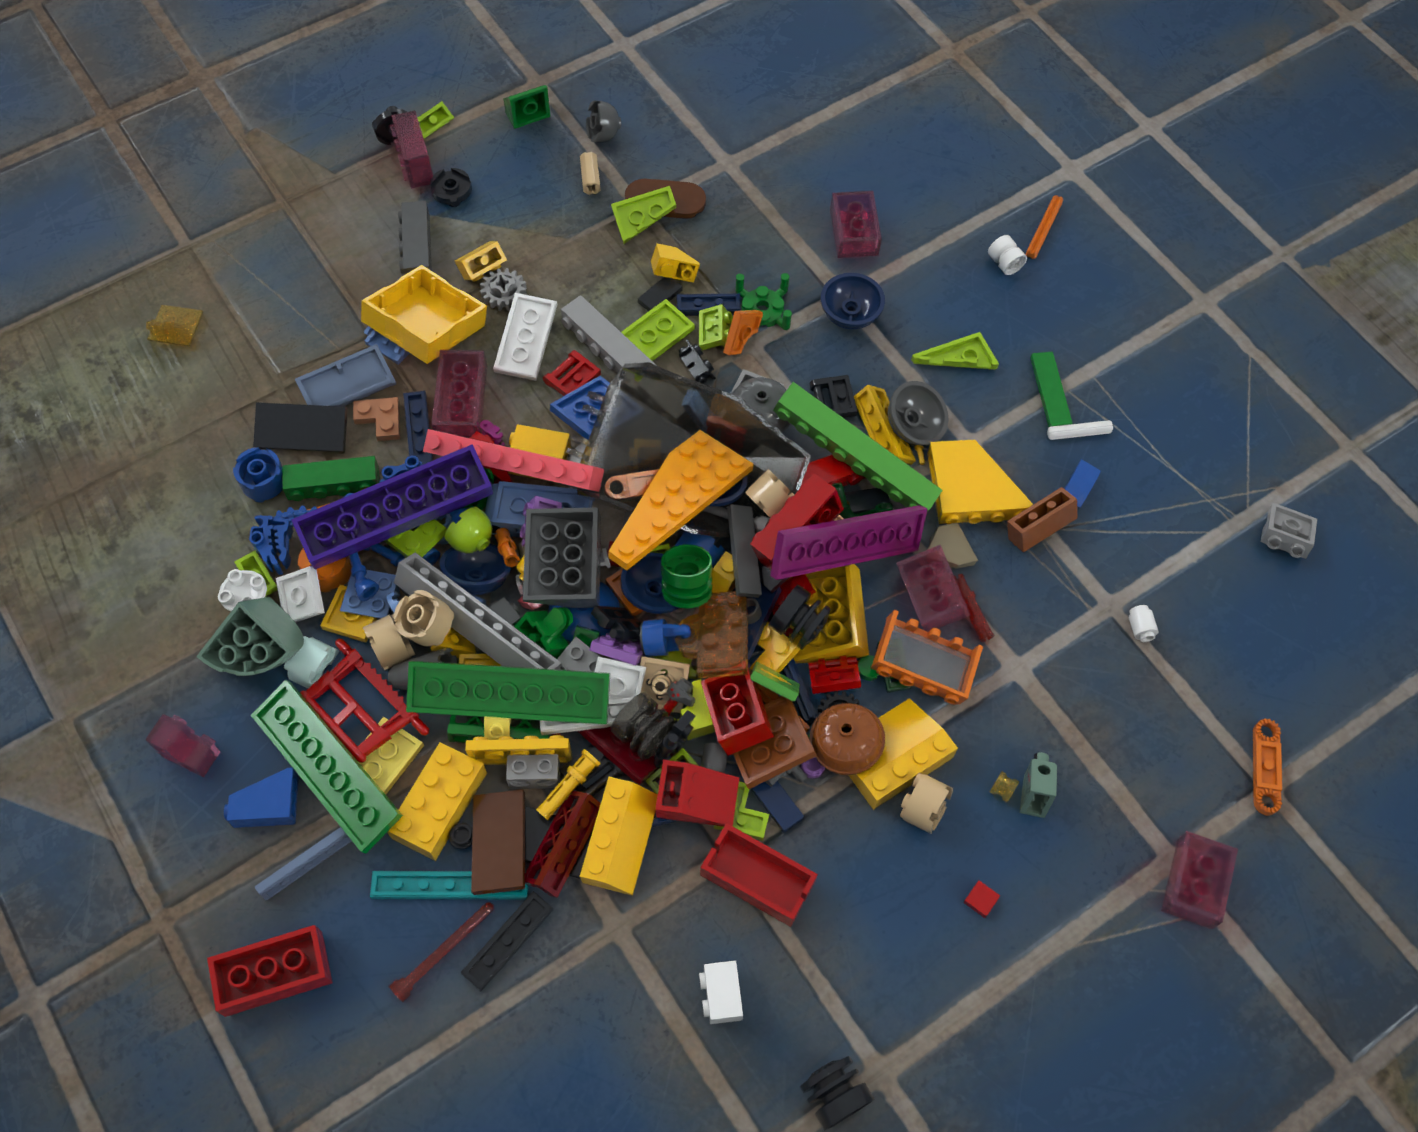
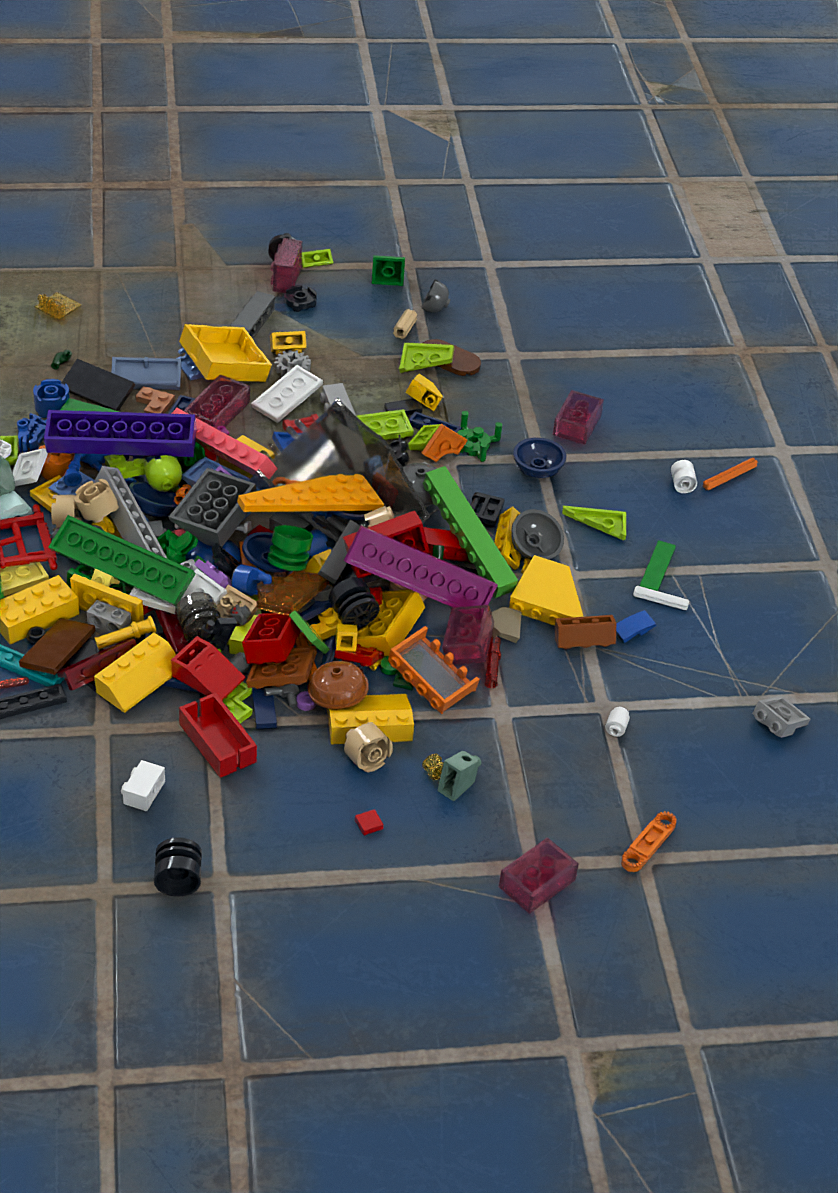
camera: 25 degrees right, 20 degrees down
(228, 403) = (60, 358): none -> dark green arm
(815, 665) = (346, 637): none -> yellow brick

